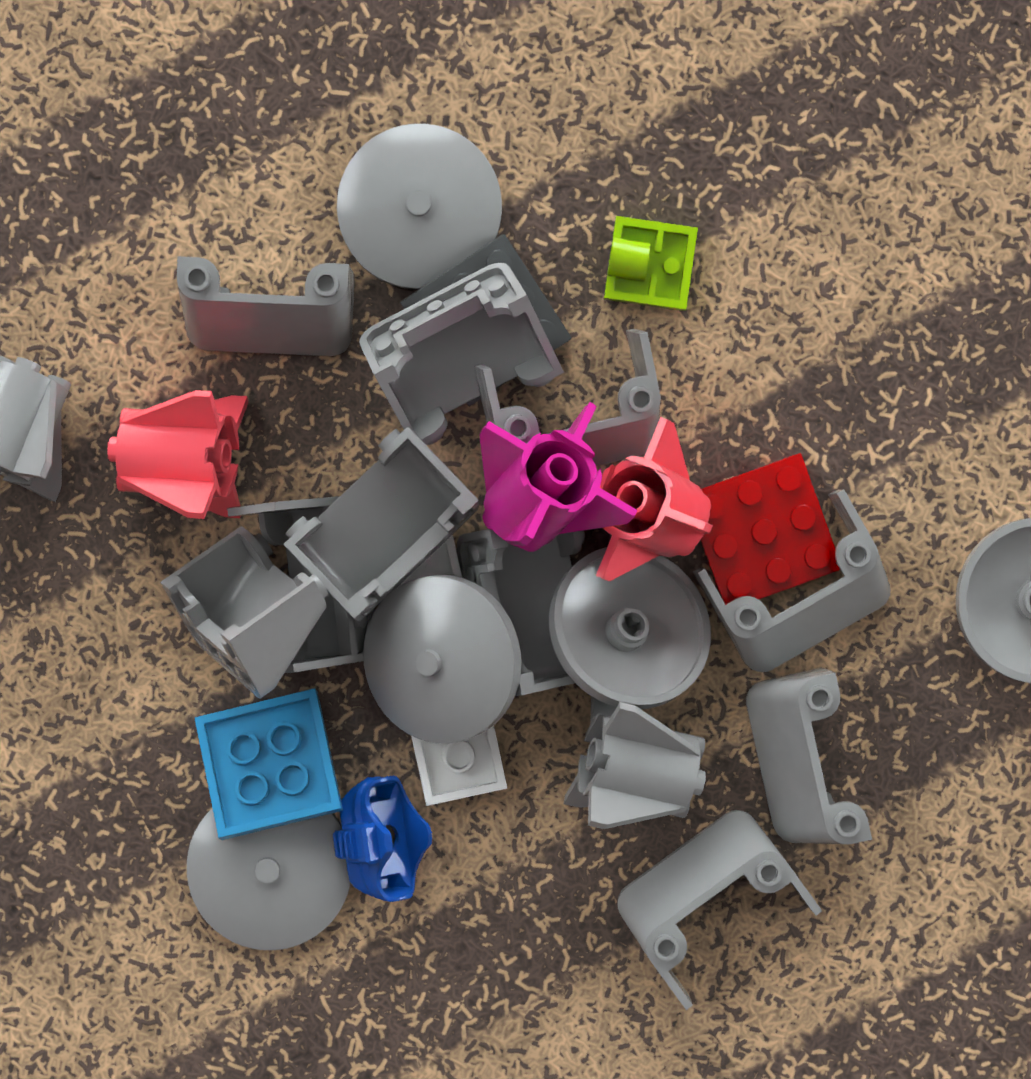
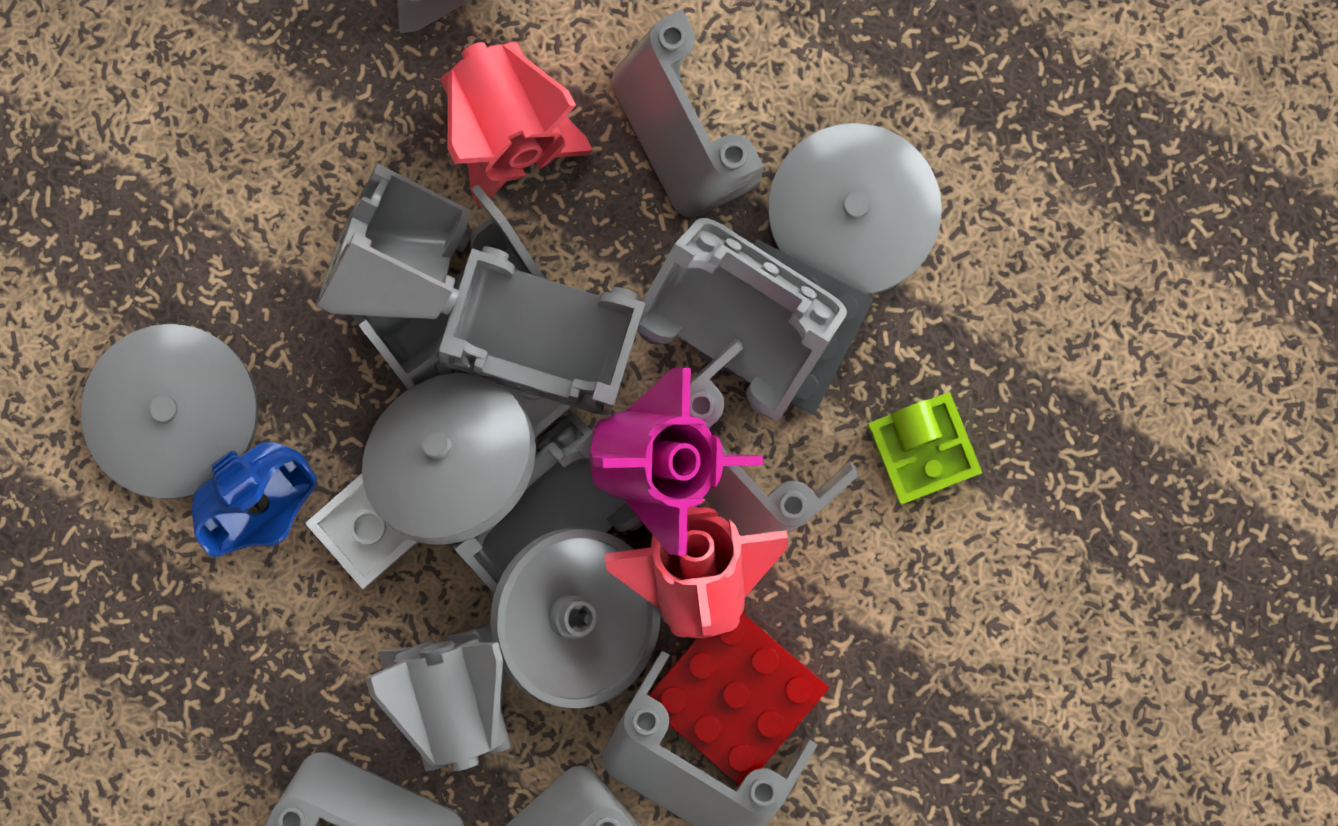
camera: 55 degrees right, 5 degrees down
(268, 764) = (263, 355): dark azure plate -> none

